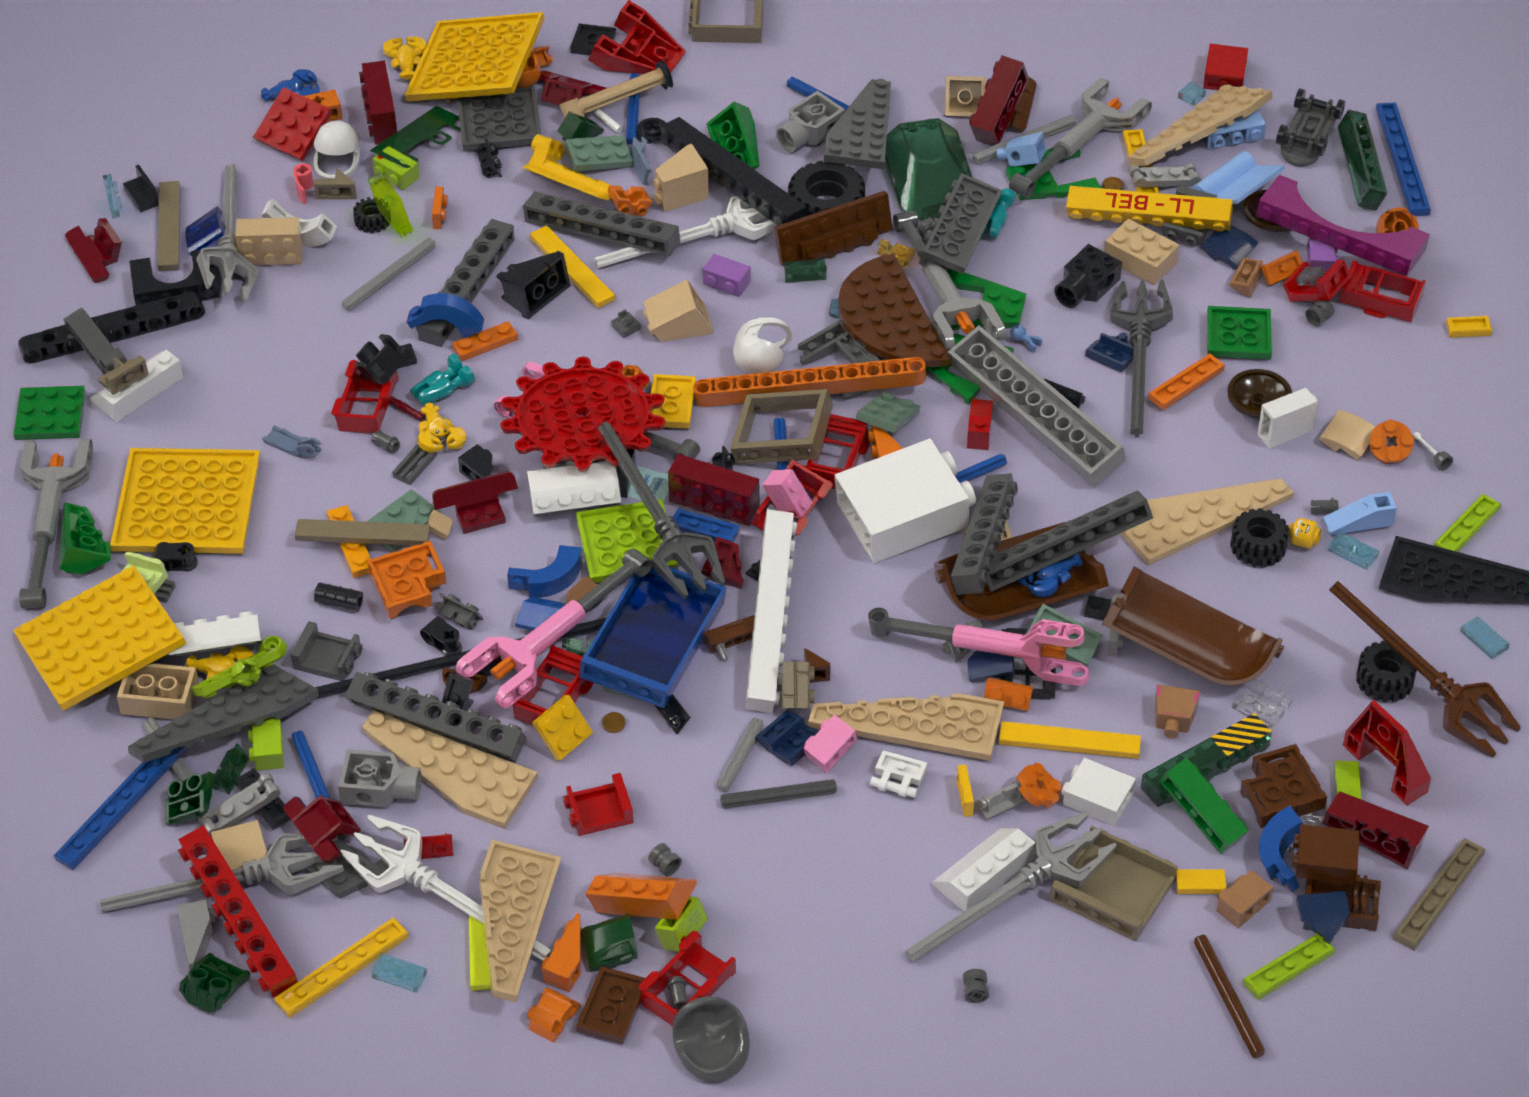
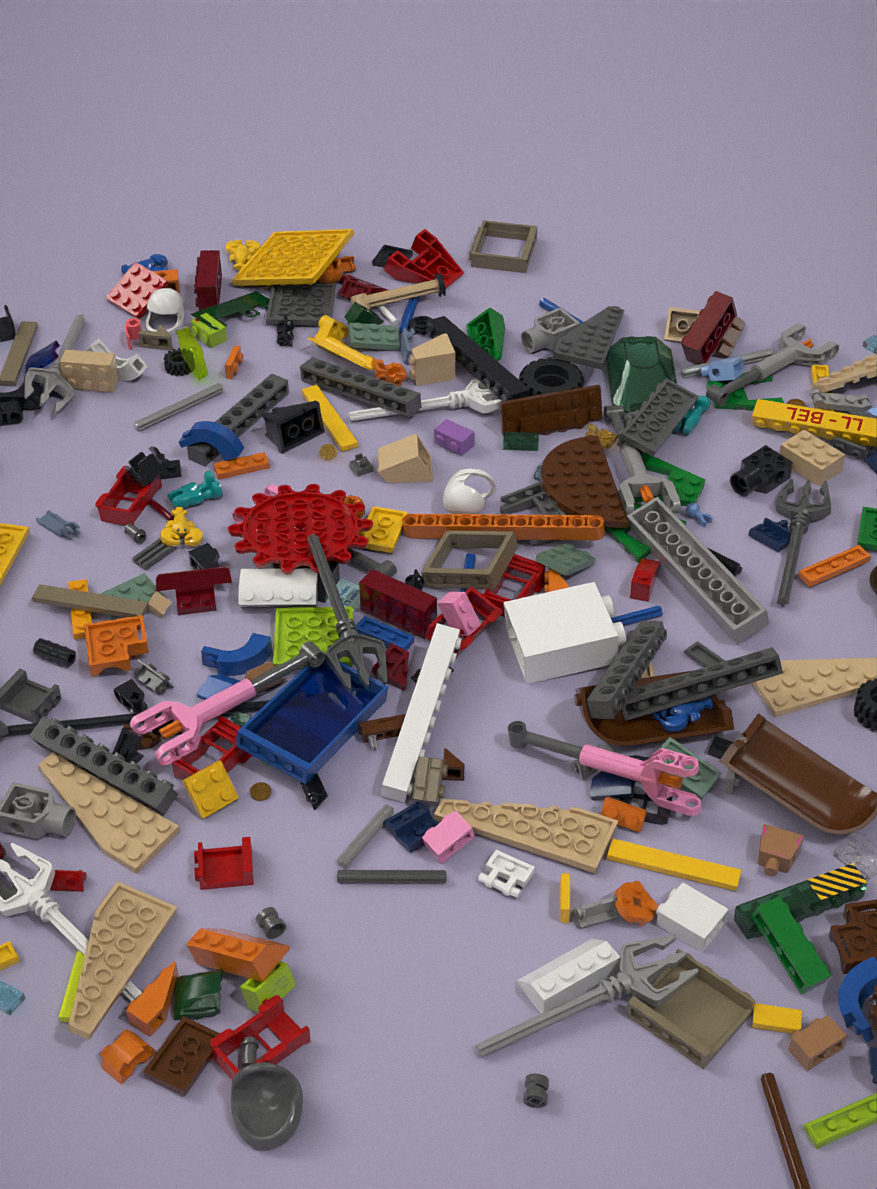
camera: 10 degrees right, 5 degrees down
(583, 311) = (328, 451): none -> clear yellow plate
(1061, 506) = (702, 655): none -> dark grey tile

